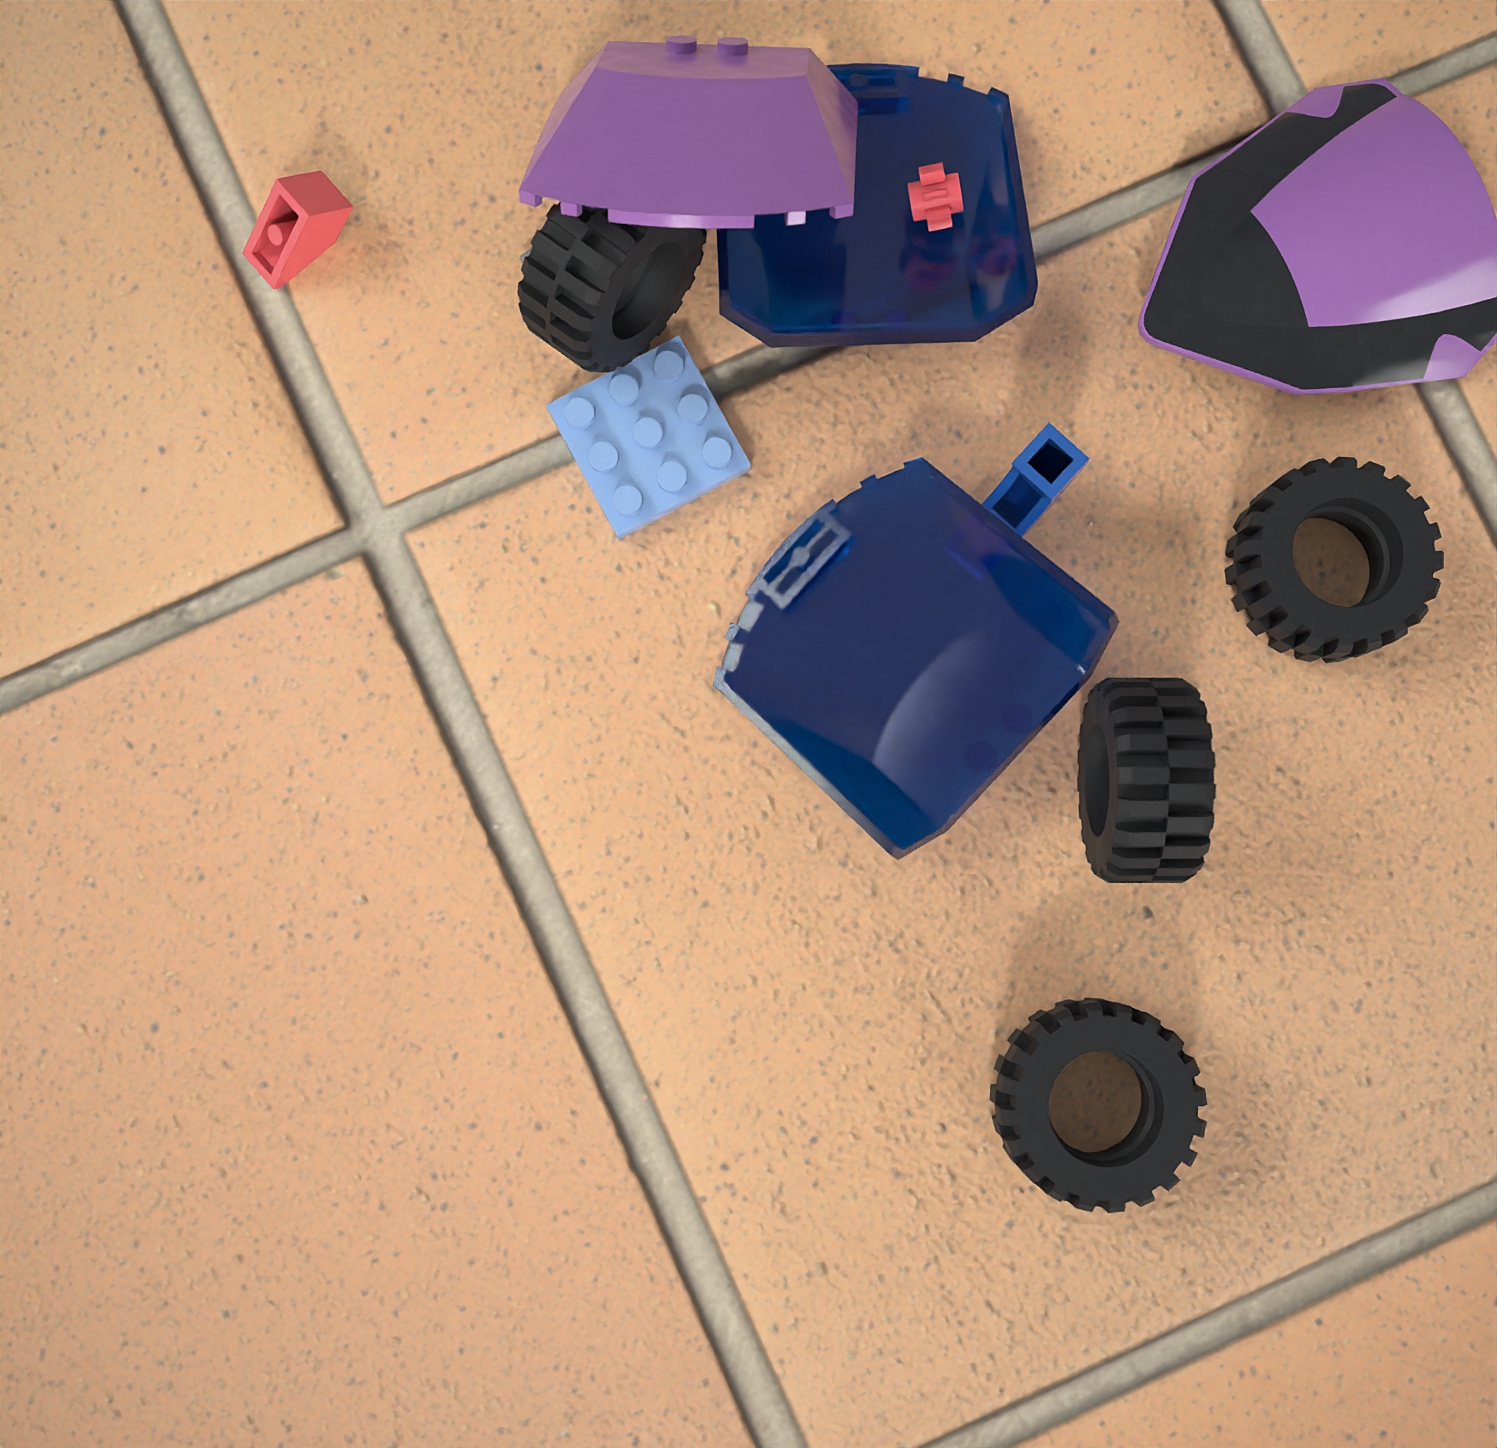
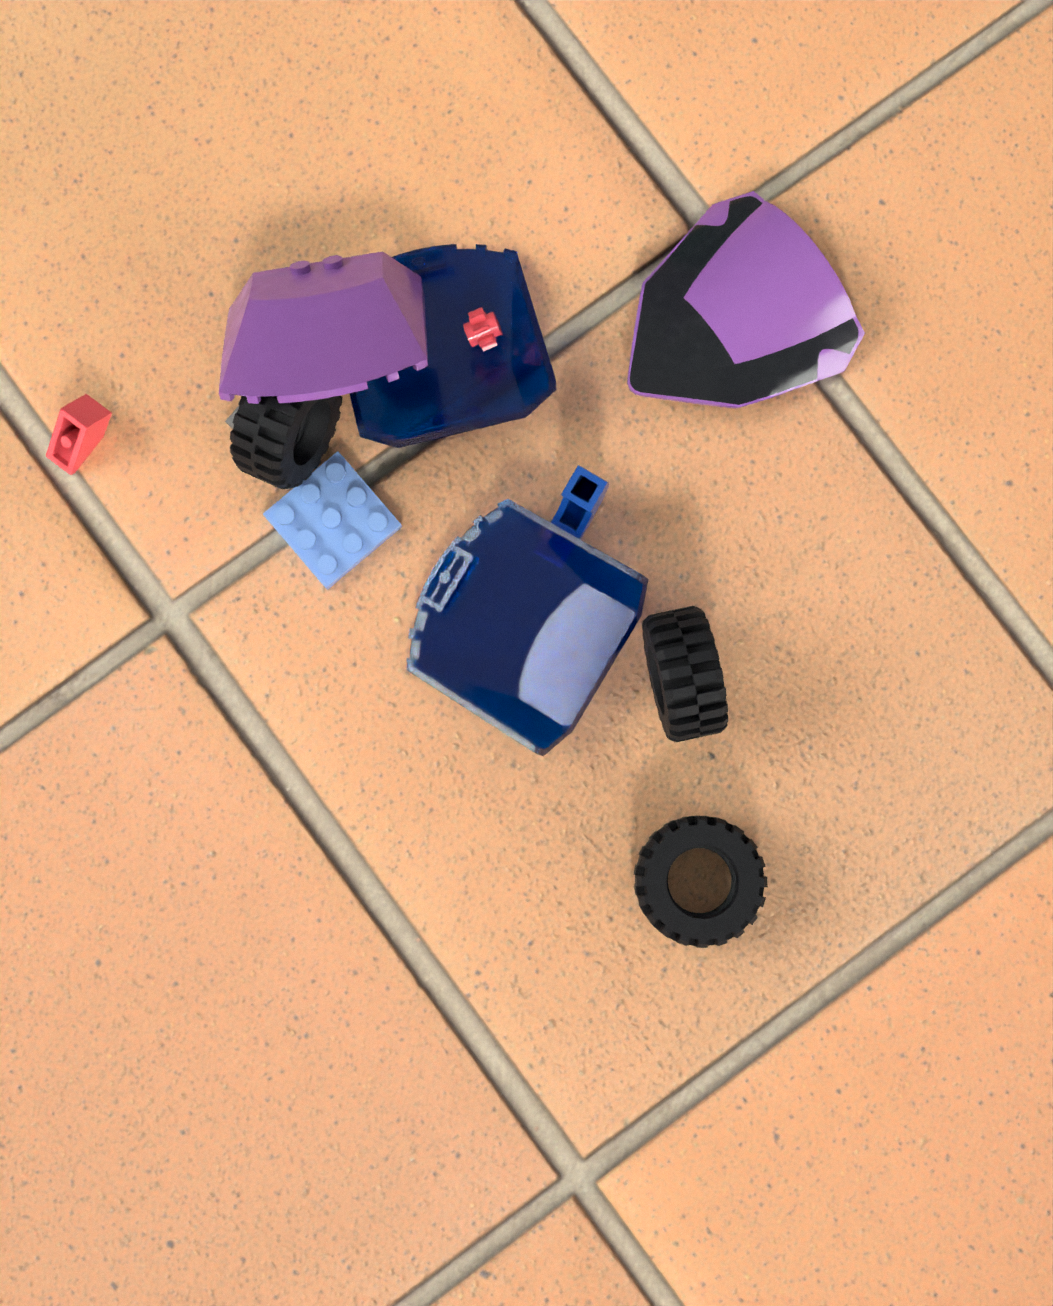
camera: 10 degrees left, 0 degrees up
(1386, 524) = (808, 477): black tyre -> none

